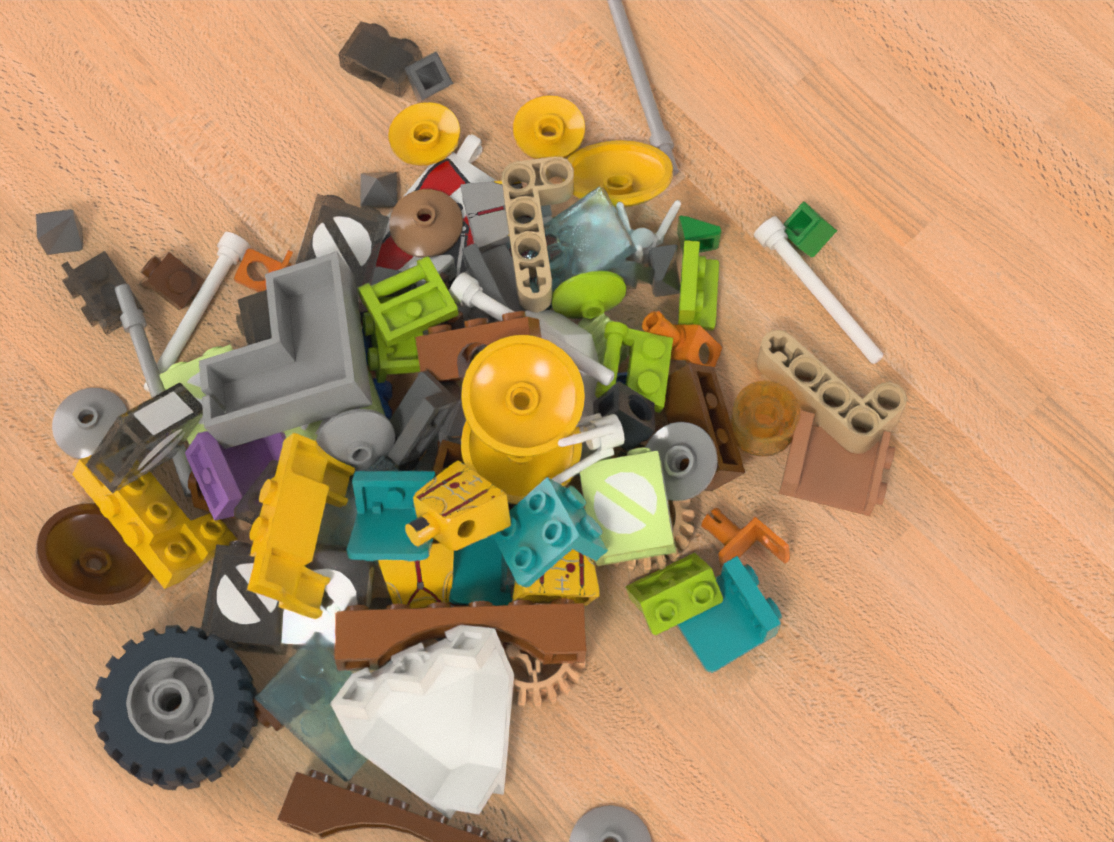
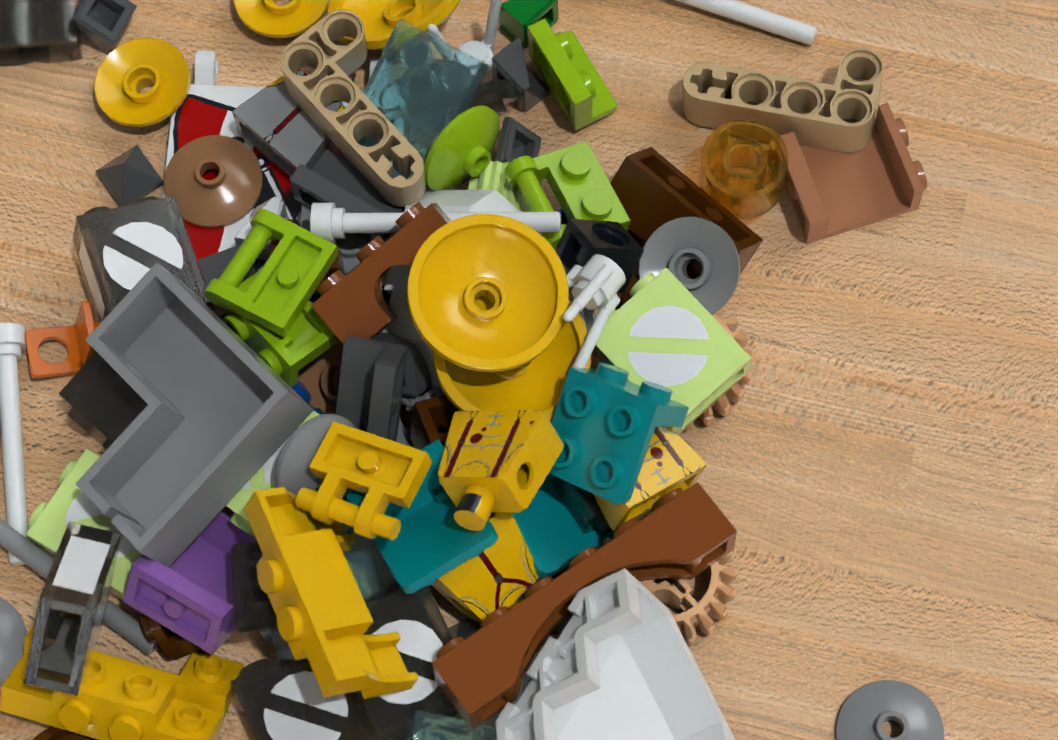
camera: 30 degrees left, 0 degrees up
(378, 462) = (371, 466): none -> yellow plate
(630, 312) = (516, 142): none -> dark grey slope
(675, 593) = (774, 415): lime bracket -> none
(686, 339) = (599, 131): orange bracket -> none
(734, 625) = (846, 406): teal bracket -> none
(739, 540) = (801, 317): orange bracket -> none

